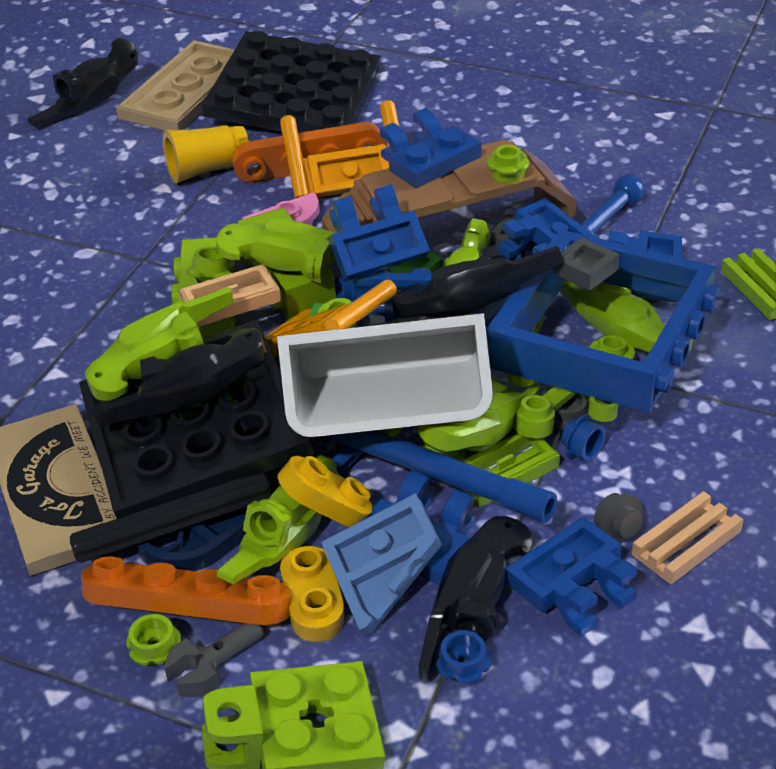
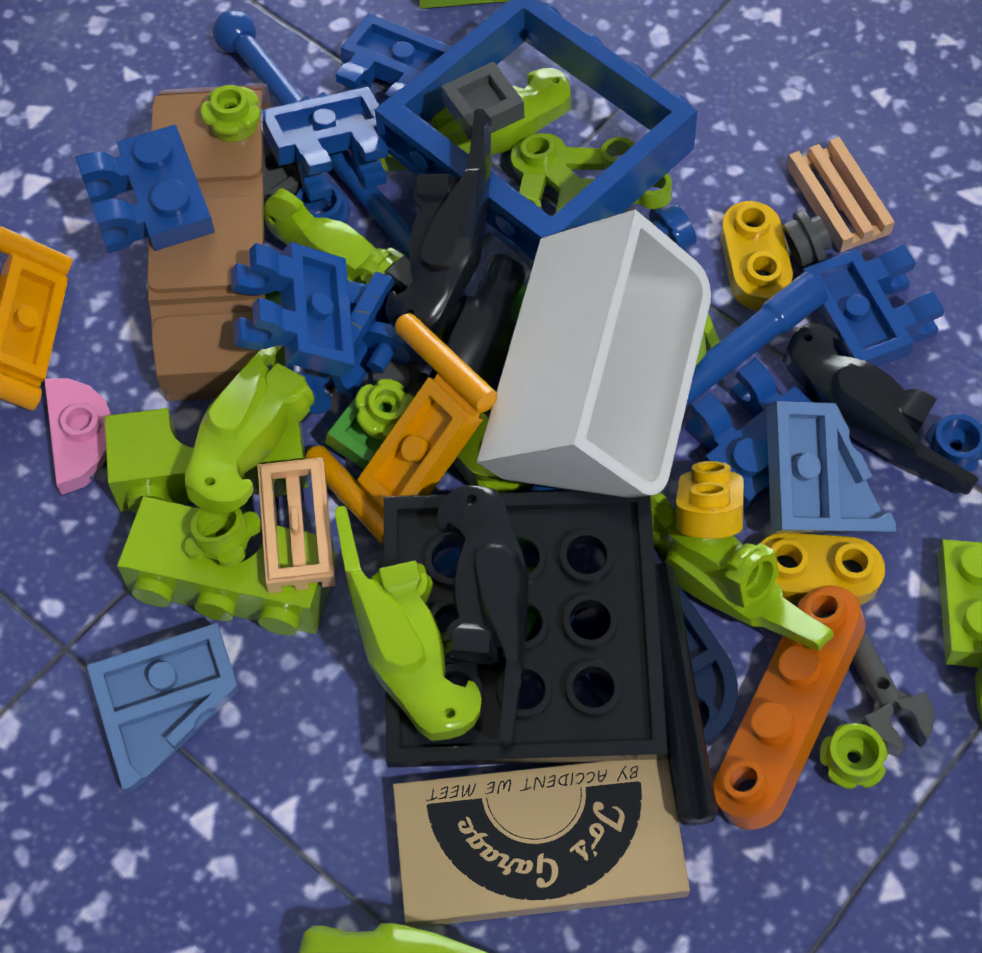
camera: 75 degrees left, 20 degrees up
(110, 295) = (160, 698): none -> medium blue wing
(583, 493) = (753, 250): none -> yellow plate

